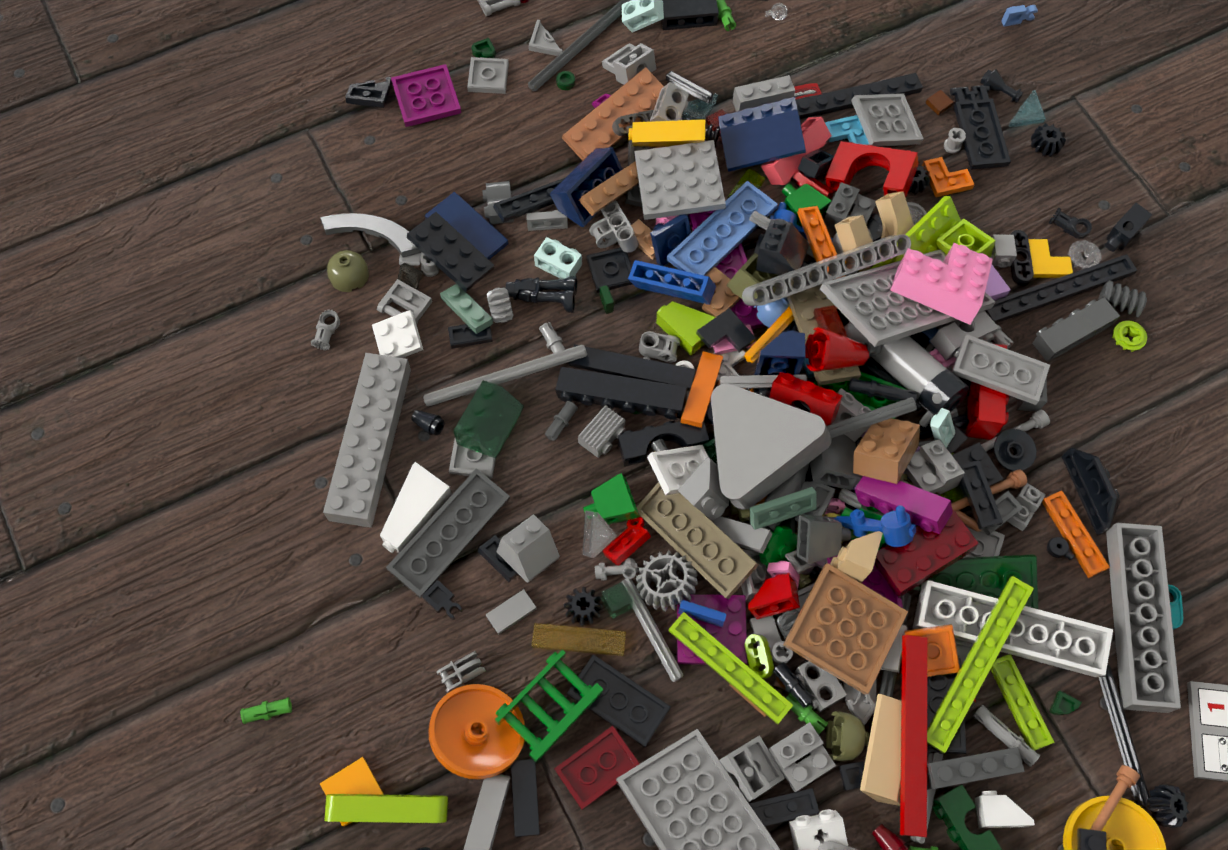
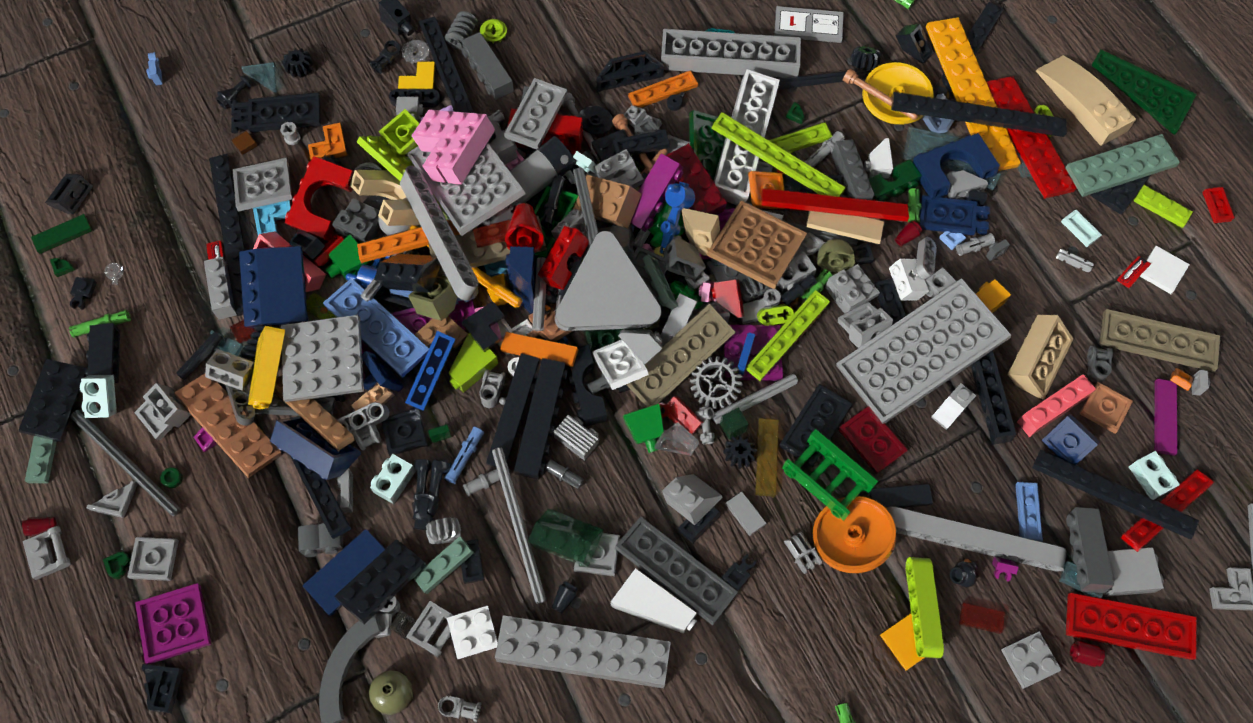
camera: 90 degrees left, 0 degrees up
(591, 327) = (463, 456): none -> medium blue pin

